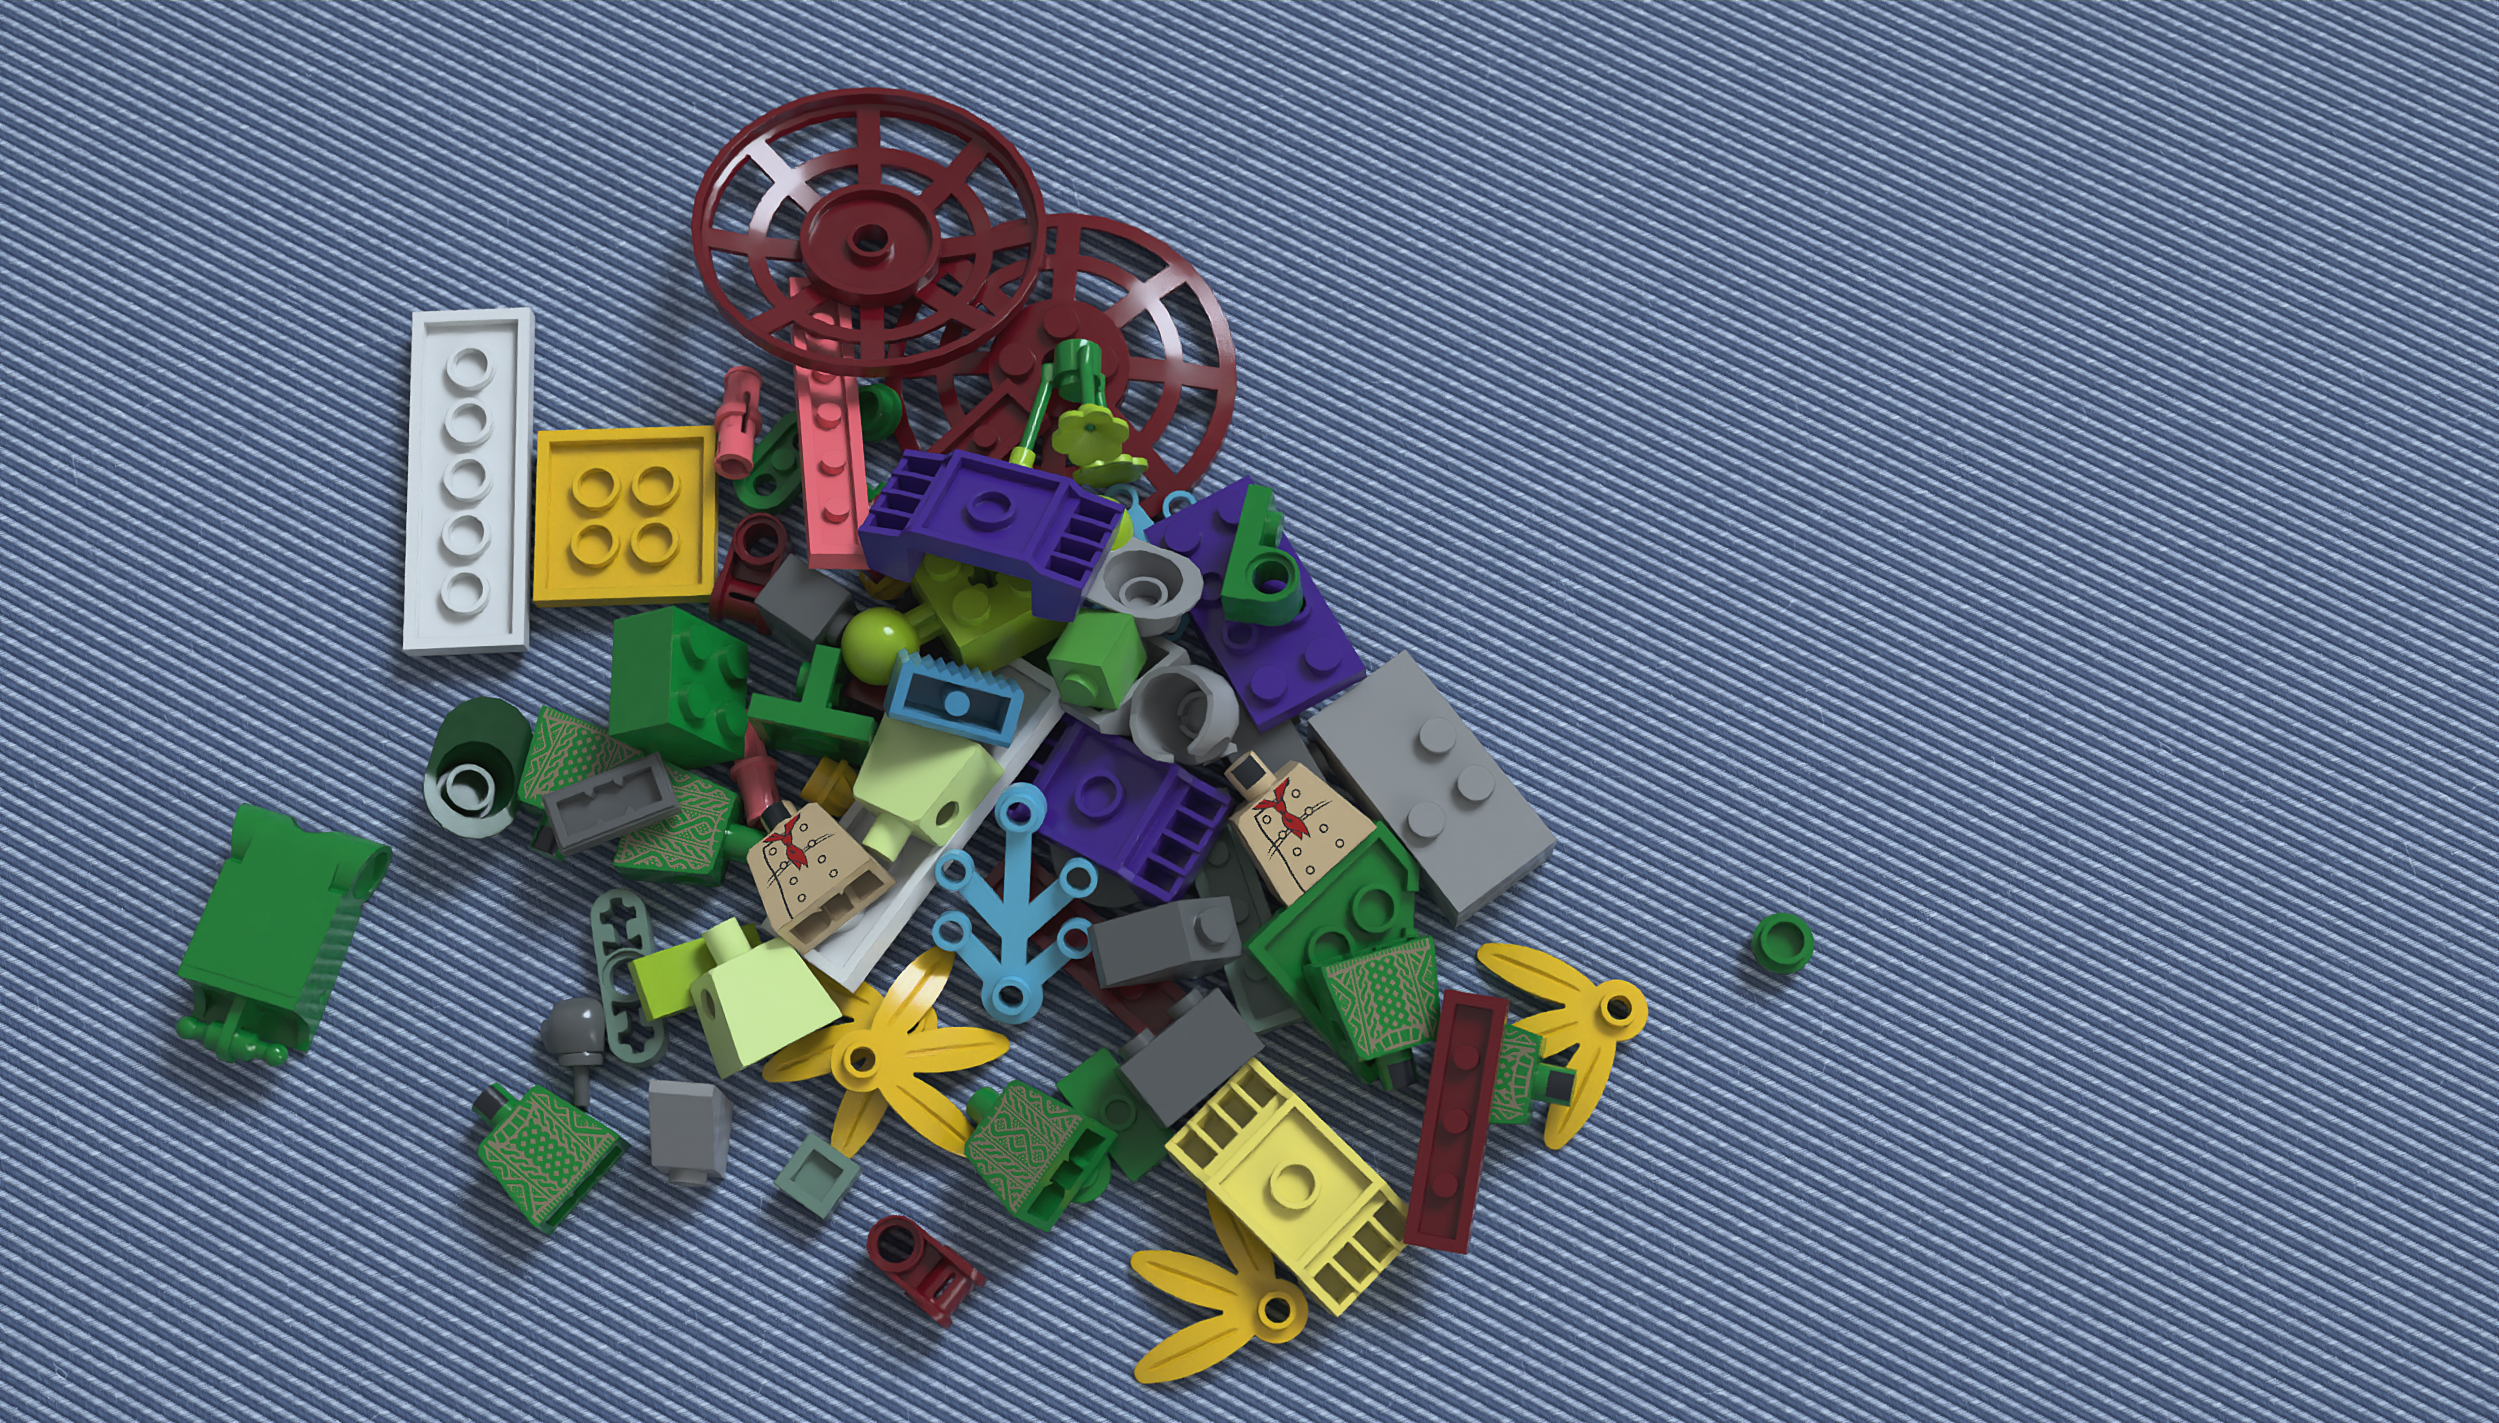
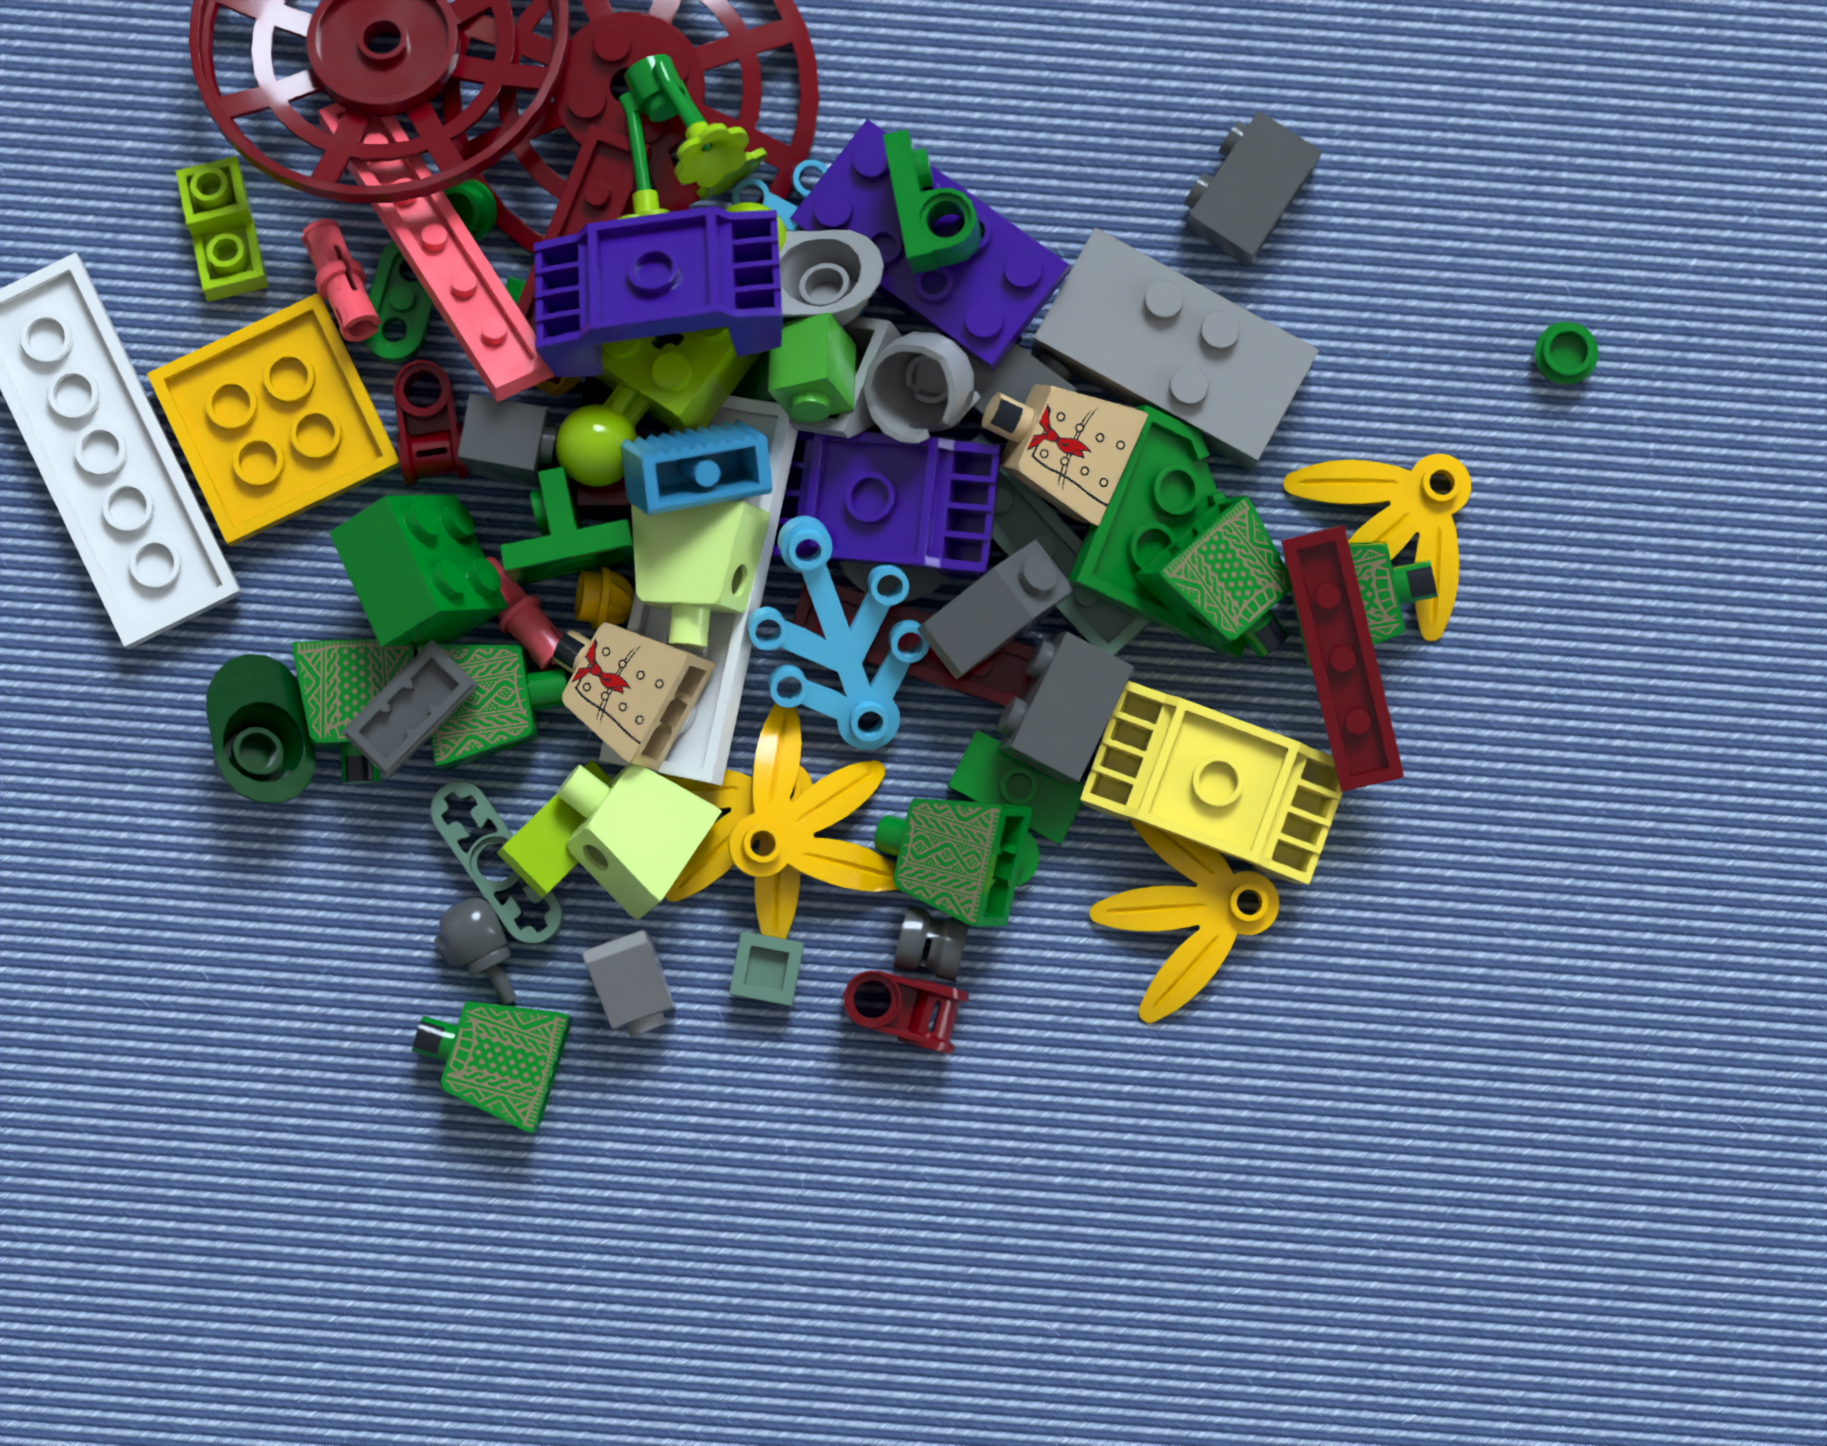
camera: 25 degrees left, 10 degrees up
(275, 935) = (142, 972): green piece -> none
(664, 342) = (222, 228): none -> lime slope
(973, 1219) = (946, 947): none -> dark grey wheel
(1561, 678) = (1252, 187): none -> dark grey brick

